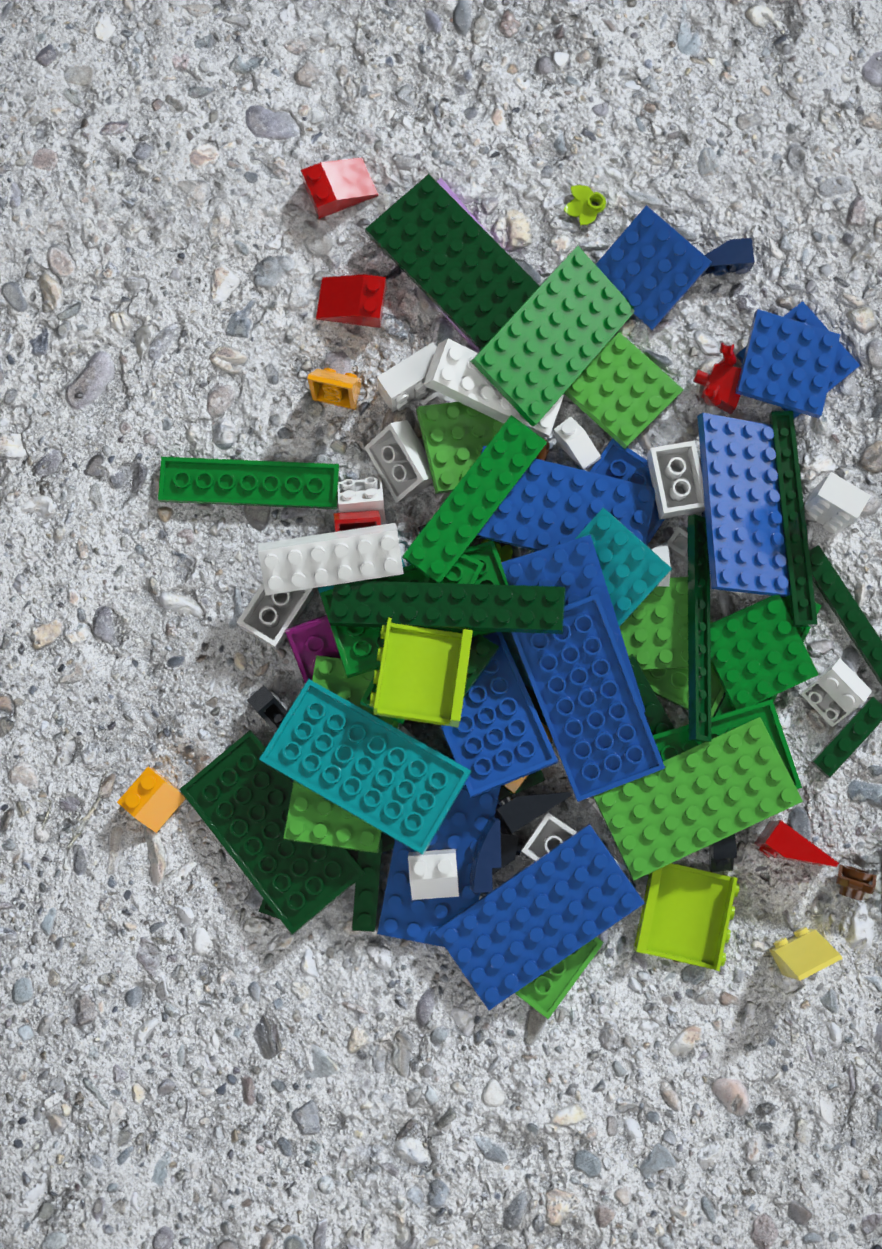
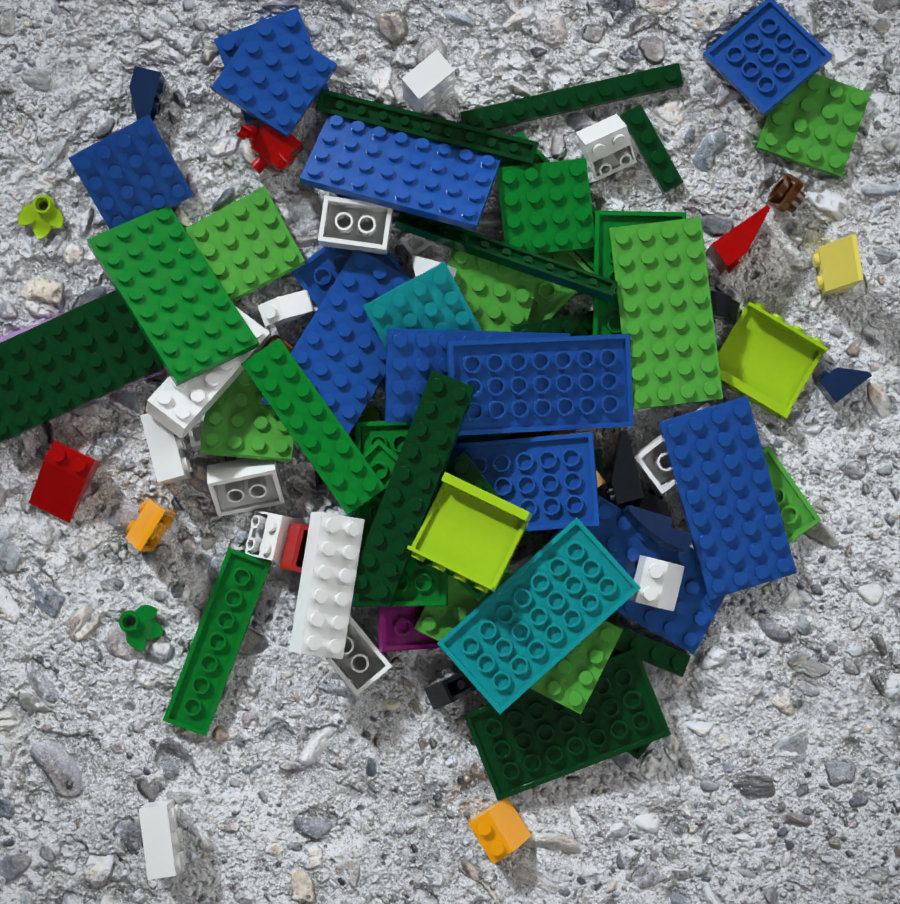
camera: 65 degrees left, 5 degrees up
(51, 489) = (162, 839): none -> white brick
(241, 413) = (144, 627): none -> green plate
(690, 995) = (840, 382): none -> dark blue slope

